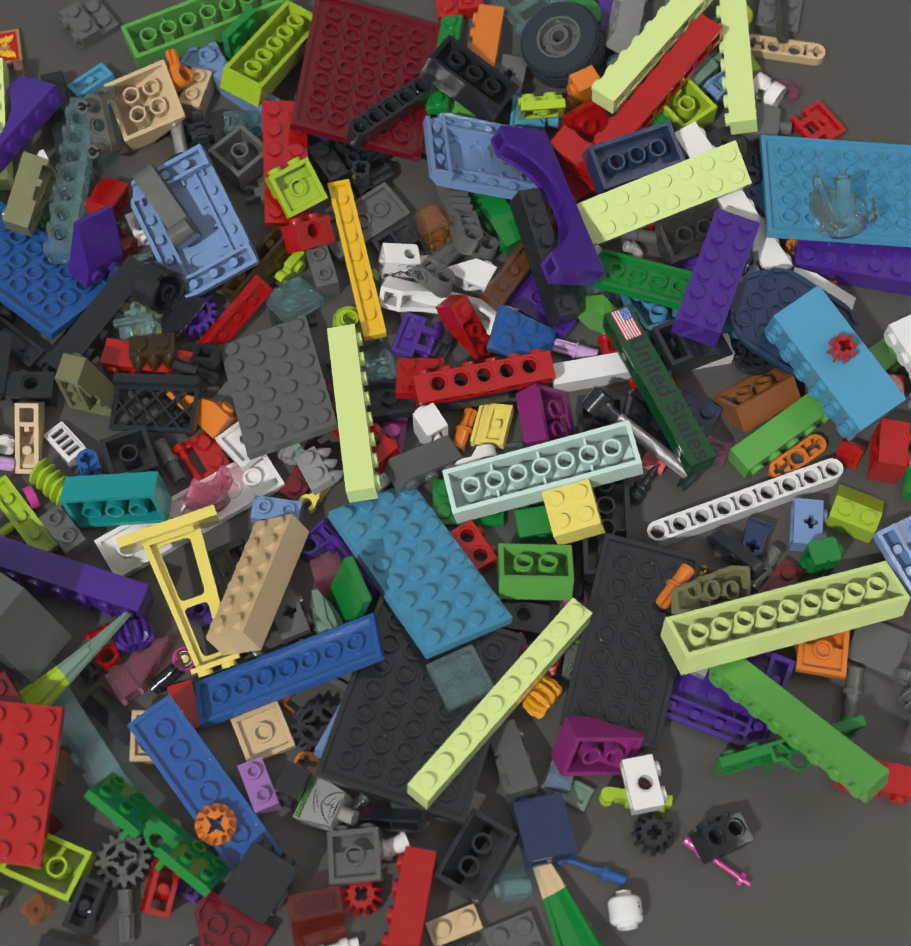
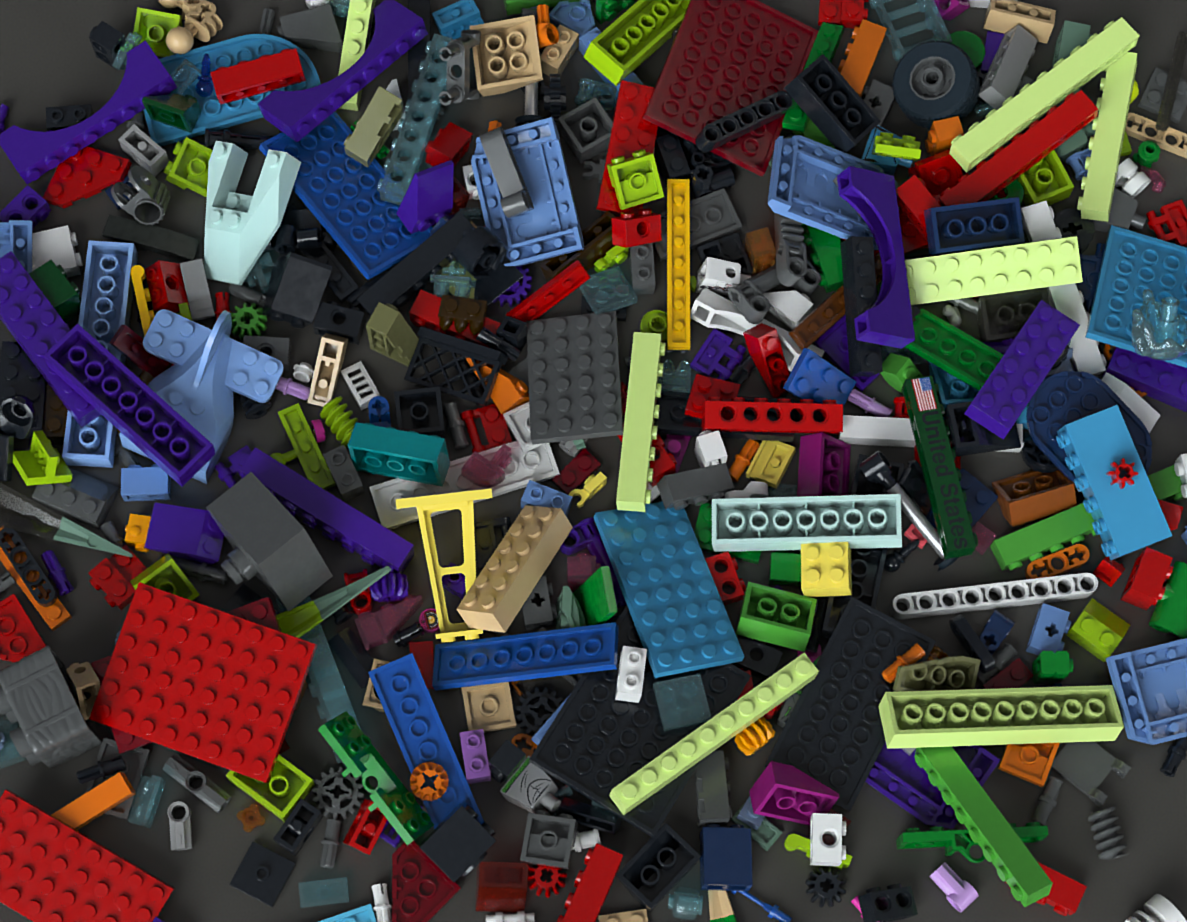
camera: 10 degrees right, 5 degrees up
(318, 469) = (594, 468): light grey plate -> none
(400, 661) = (631, 674): none -> white brick
(776, 66) = (1147, 153): none -> green brick
(789, 806) = (958, 891): none -> lavender piece

